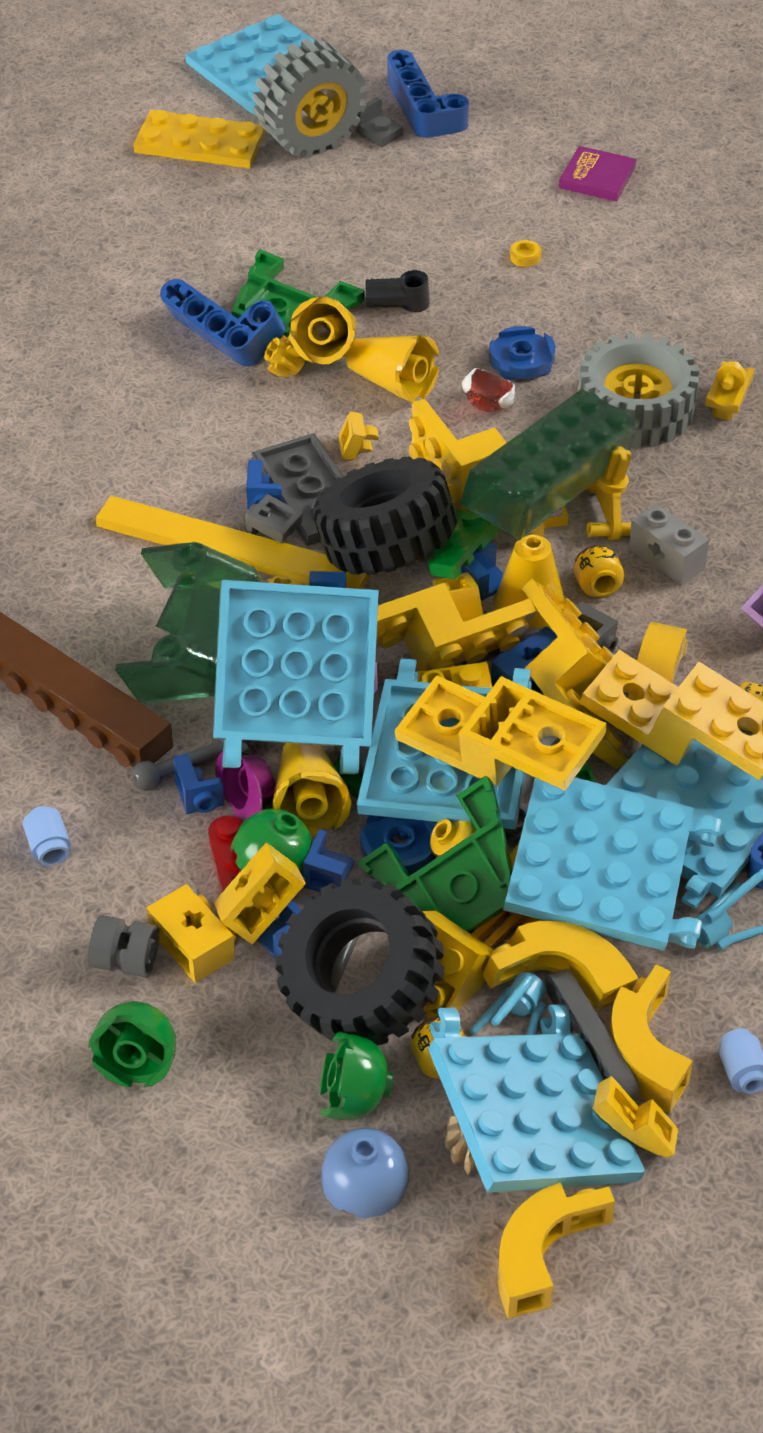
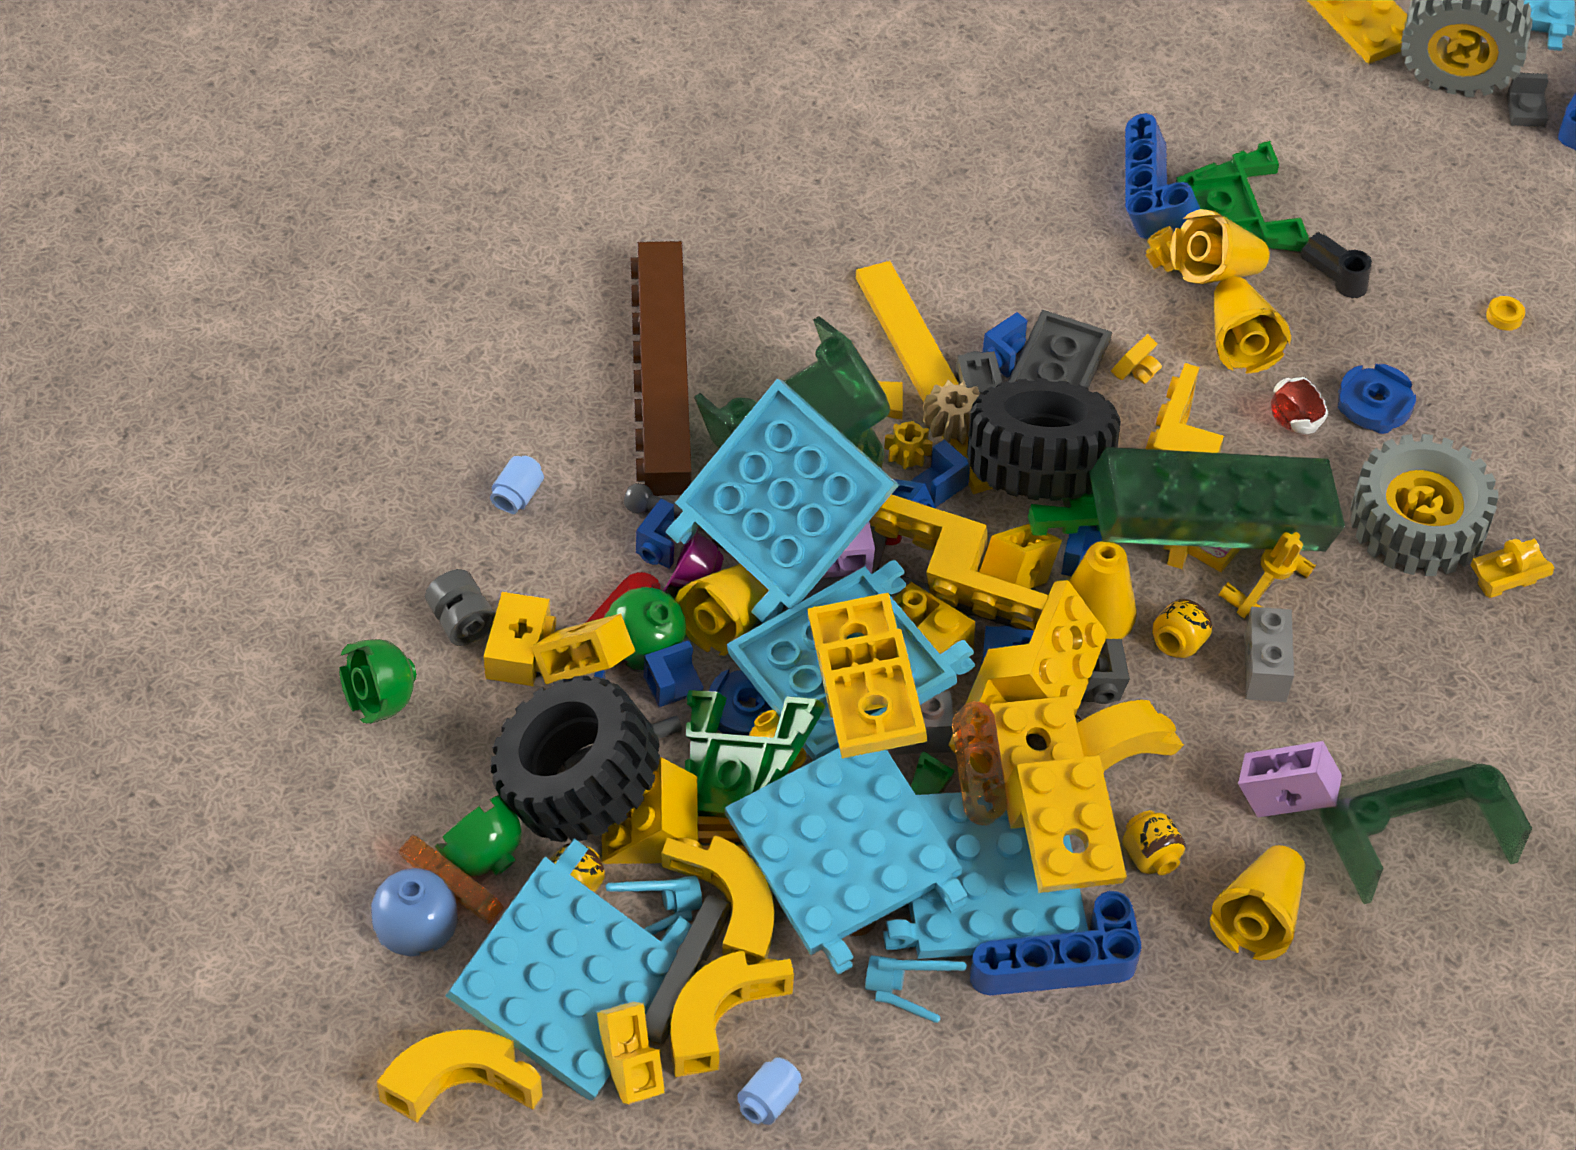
camera: 45 degrees right, 5 degrees up
(292, 550) = (949, 410): none -> tan gear
(397, 1122) = (465, 889): none -> clear orange beam
(648, 760) = (995, 791): none -> clear orange beam

